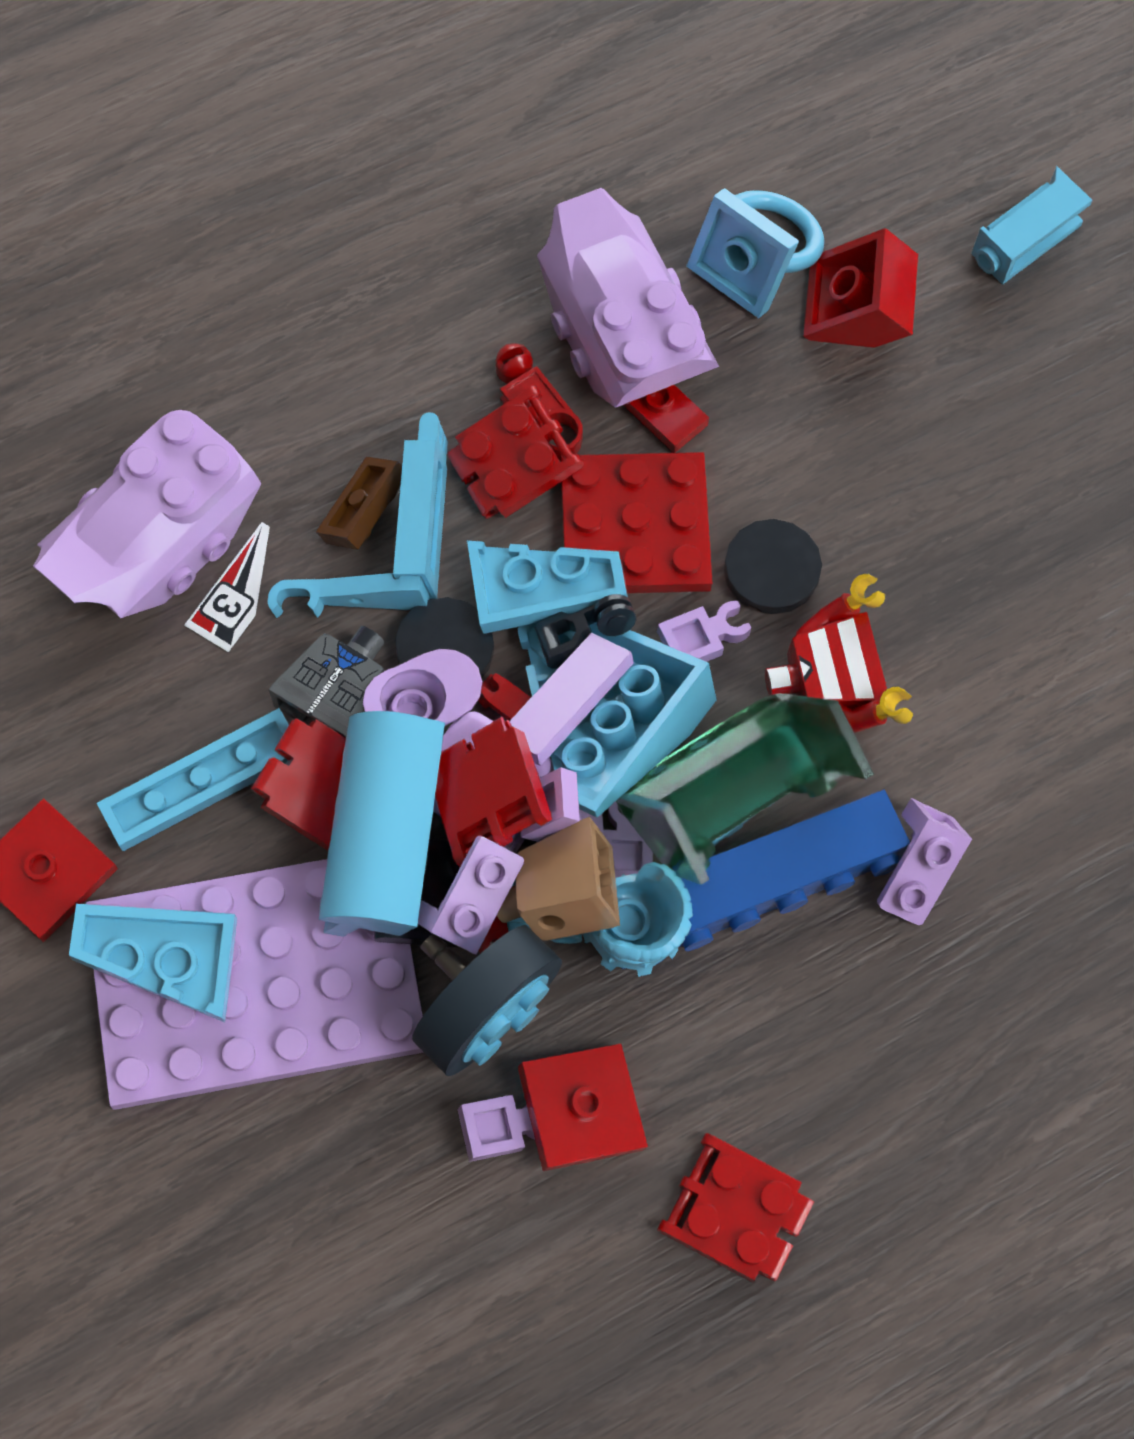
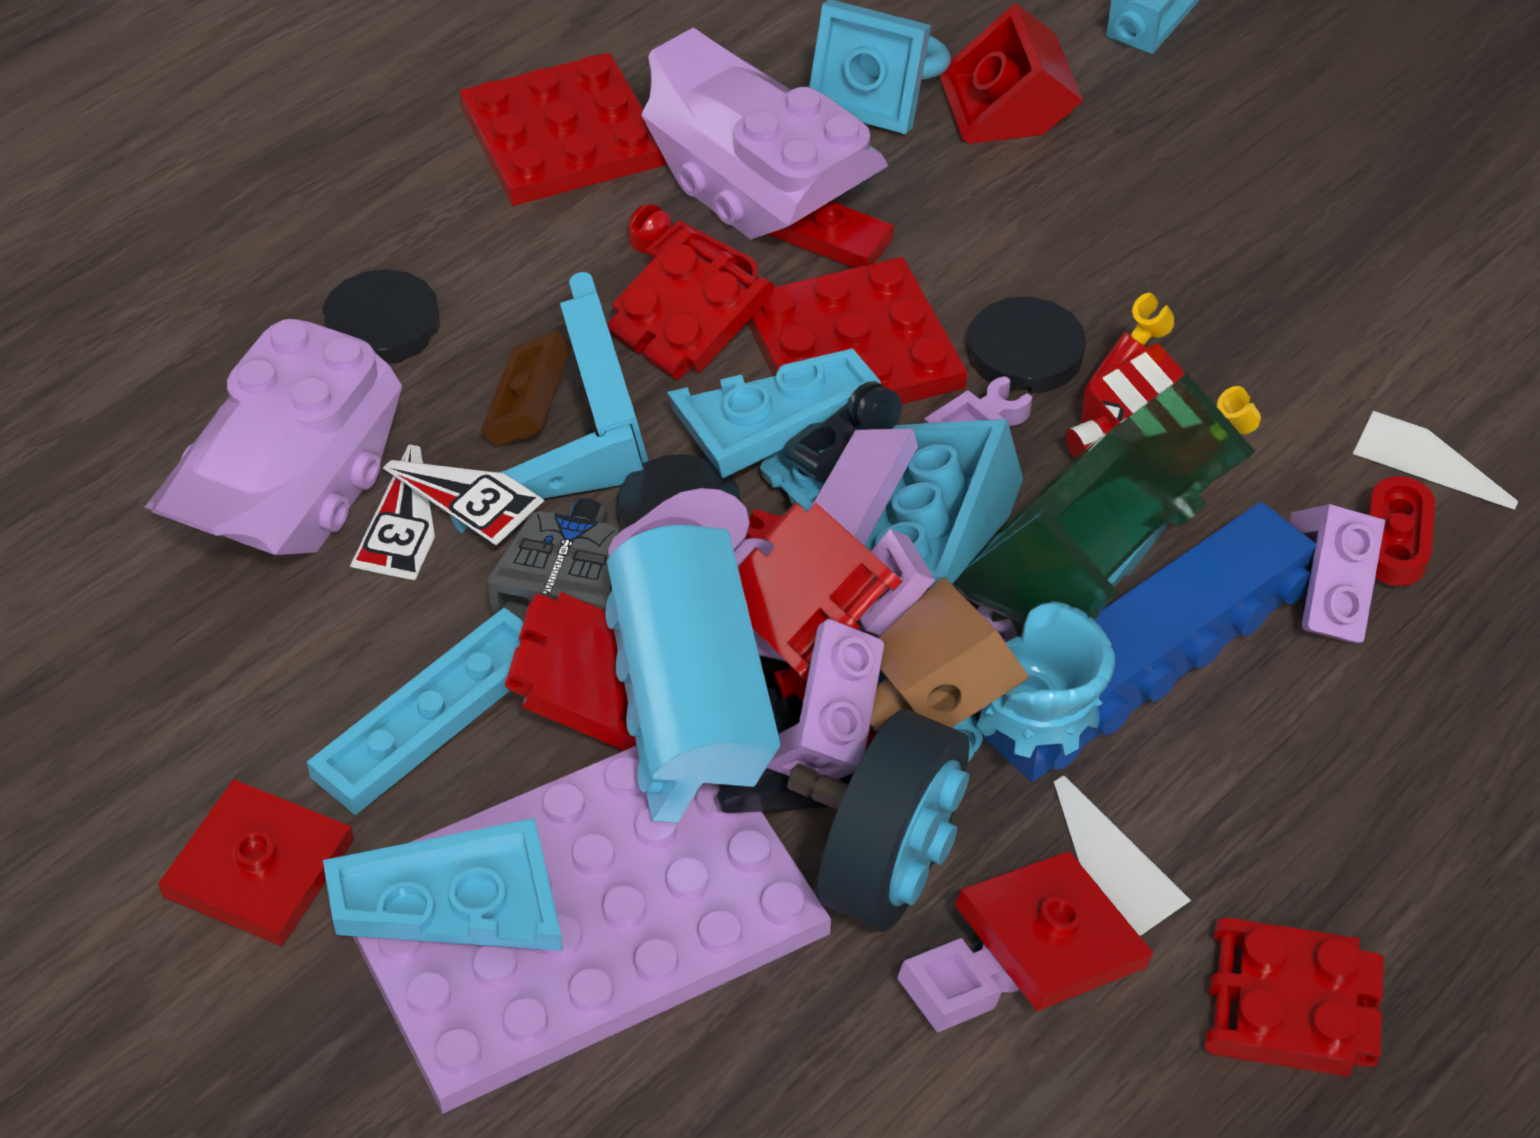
camera: 15 degrees left, 20 degrees down
(275, 392) = (386, 311): none -> black tile
(291, 597) = (480, 499): none -> sticker
(476, 234) = (560, 128): none -> red plate
(653, 1060) = (1116, 864): none -> white sticker
(993, 840) = (1407, 531): none -> red plate
(1049, 764) = (1425, 456): none -> white sticker

